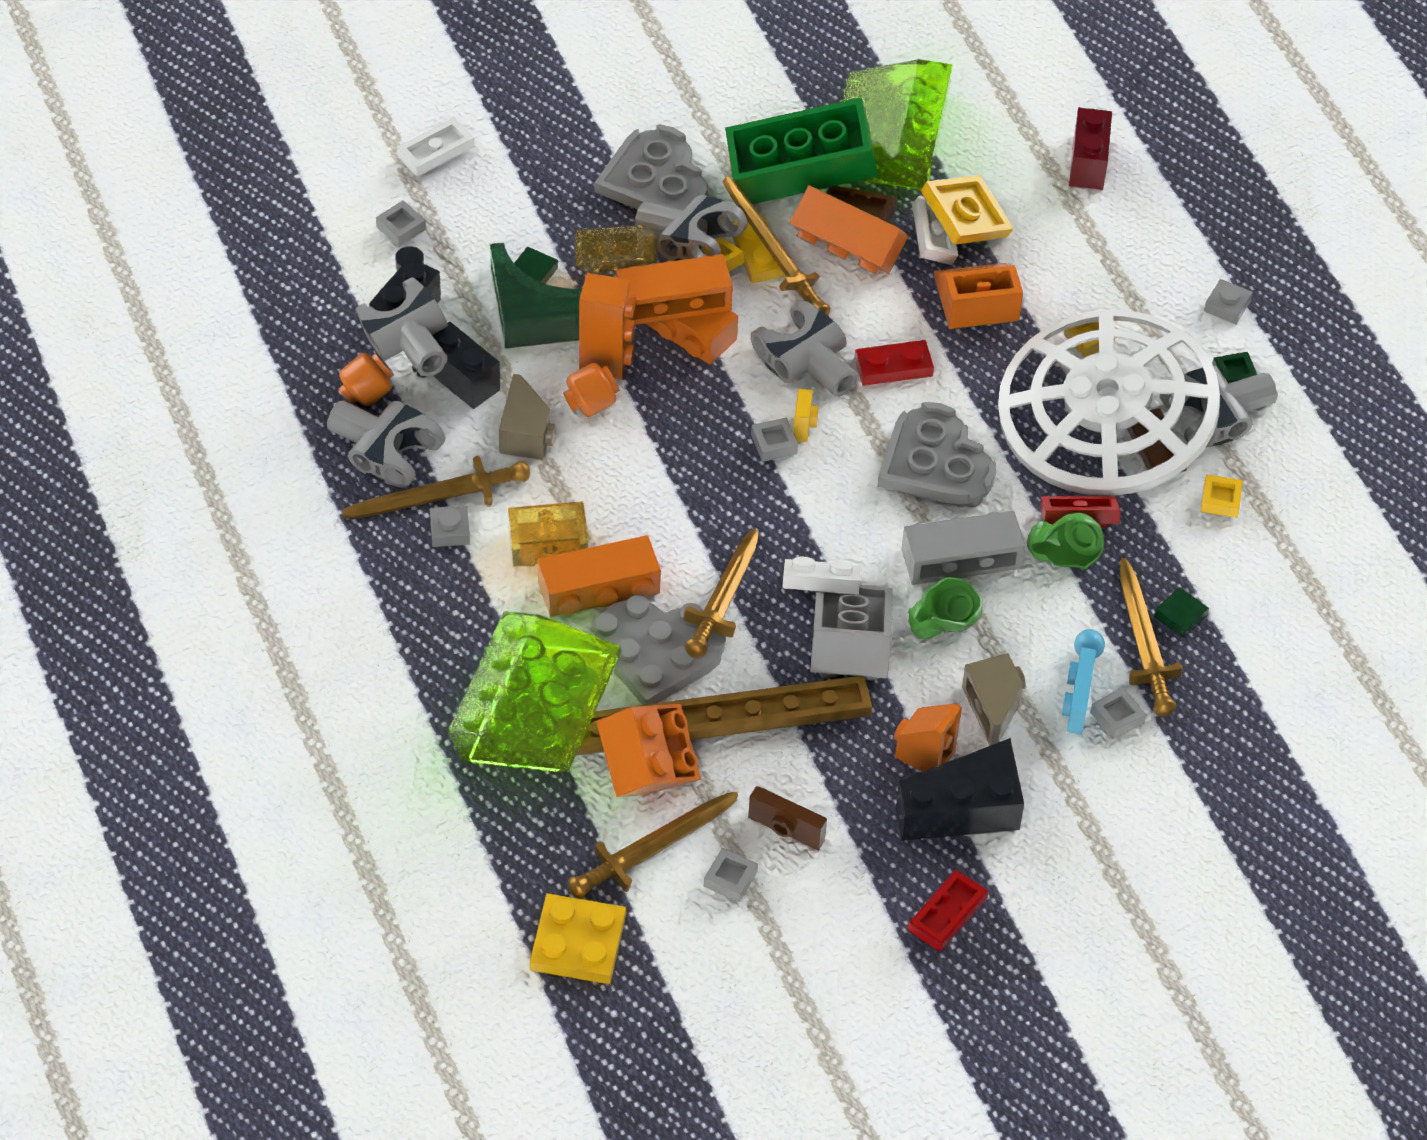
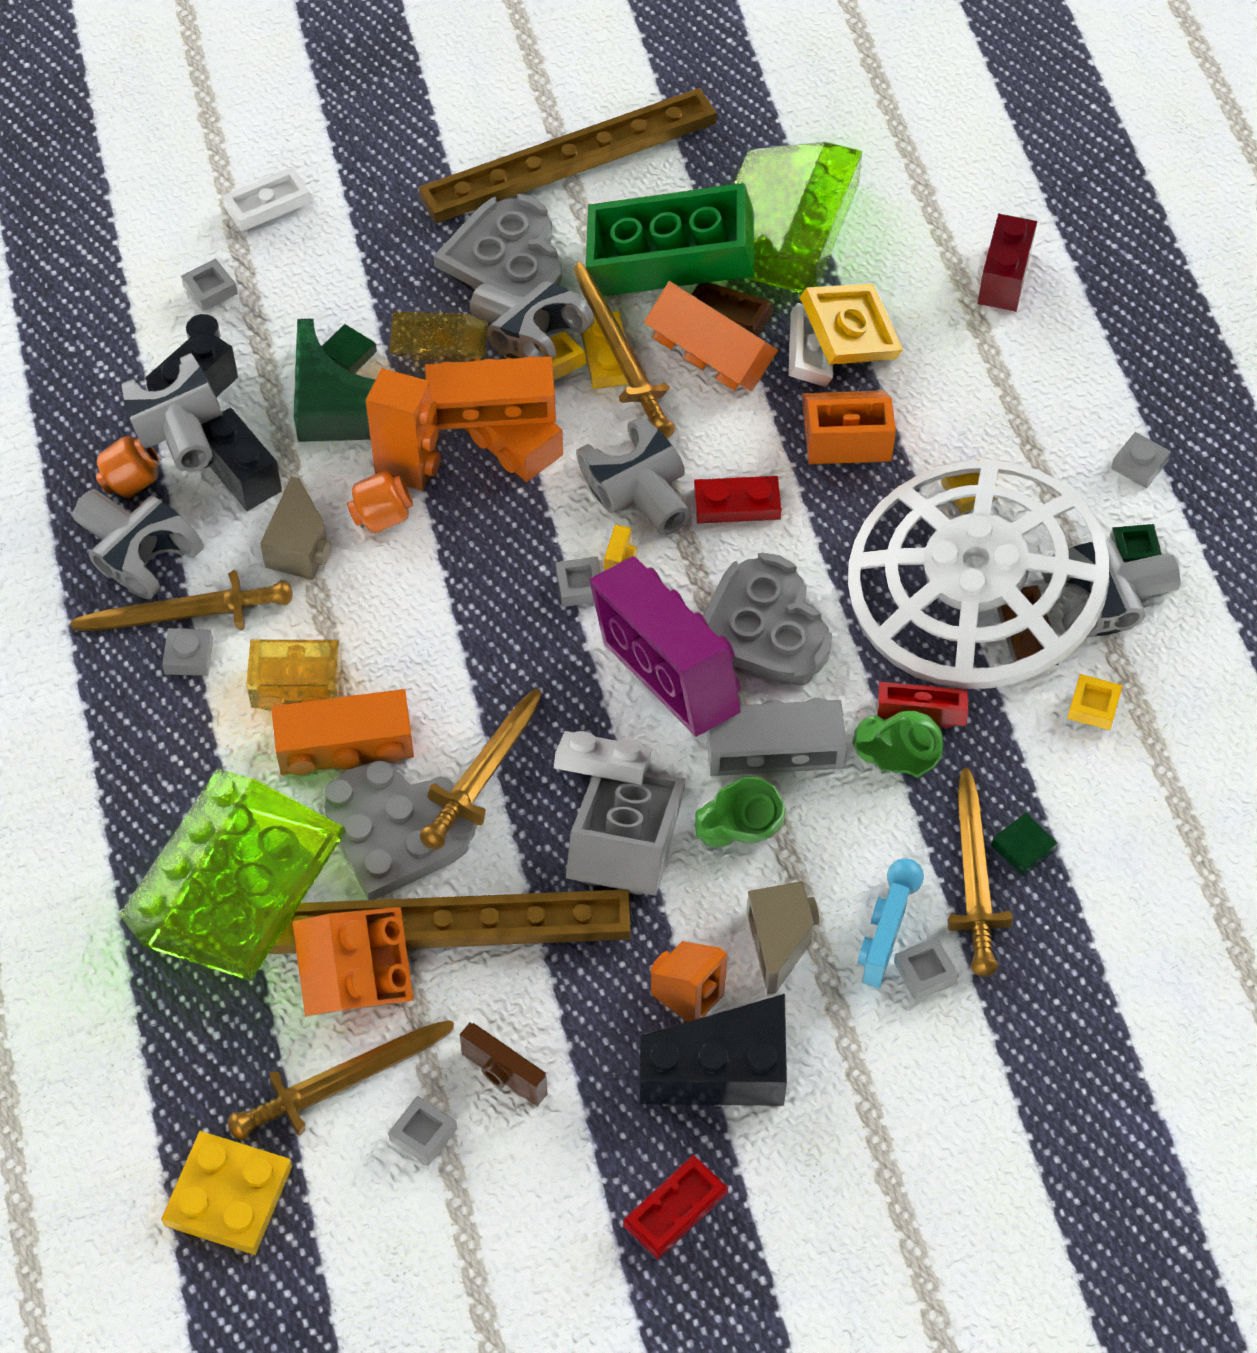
camera: 10 degrees right, 5 degrees up
(692, 89) = (567, 155): none -> pearl gold plate
(863, 478) = (666, 645): none -> magenta brick

